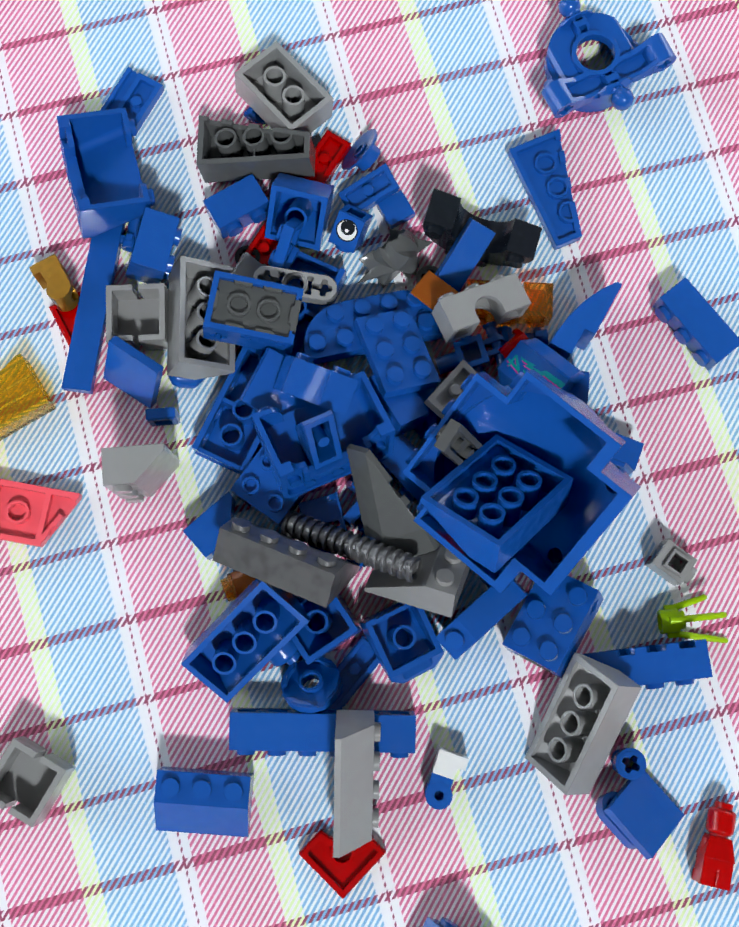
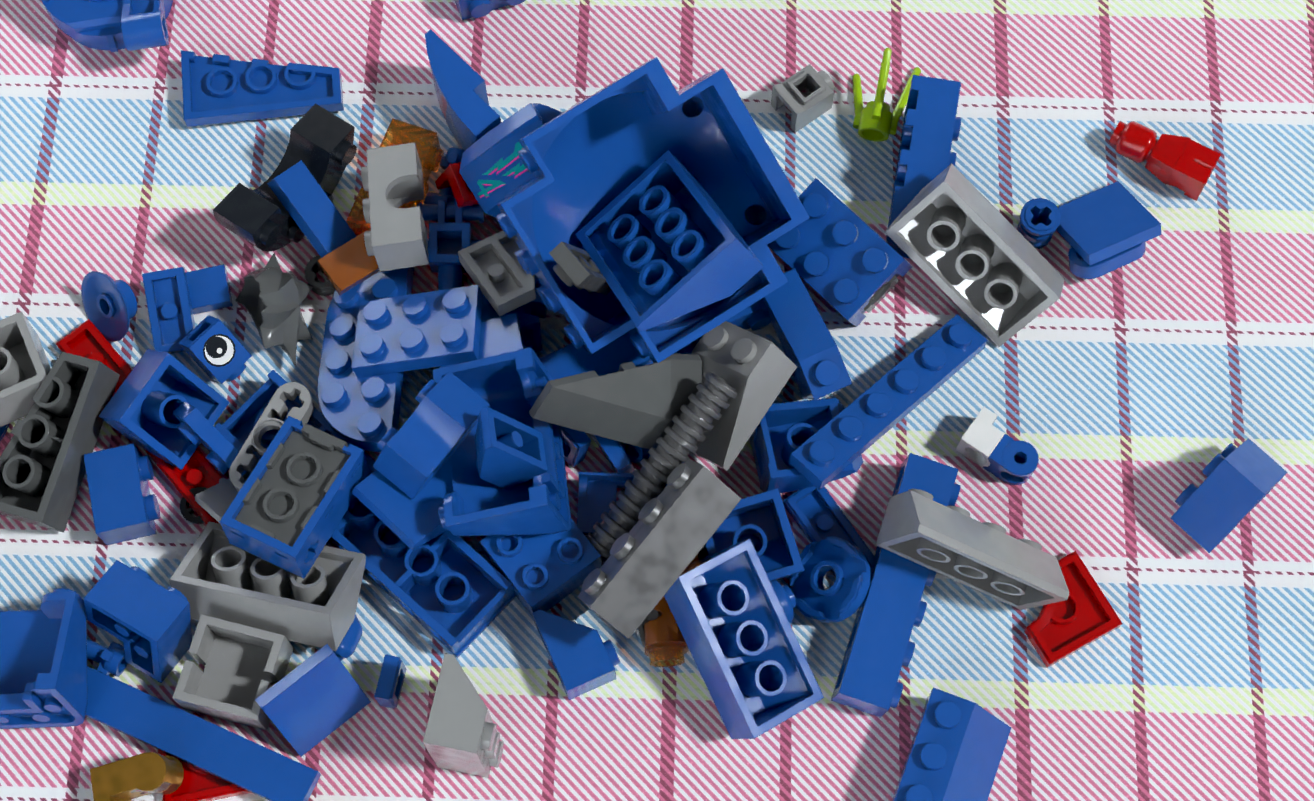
camera: 70 degrees left, 10 degrees down
(452, 689) = (887, 402): none -> blue plate

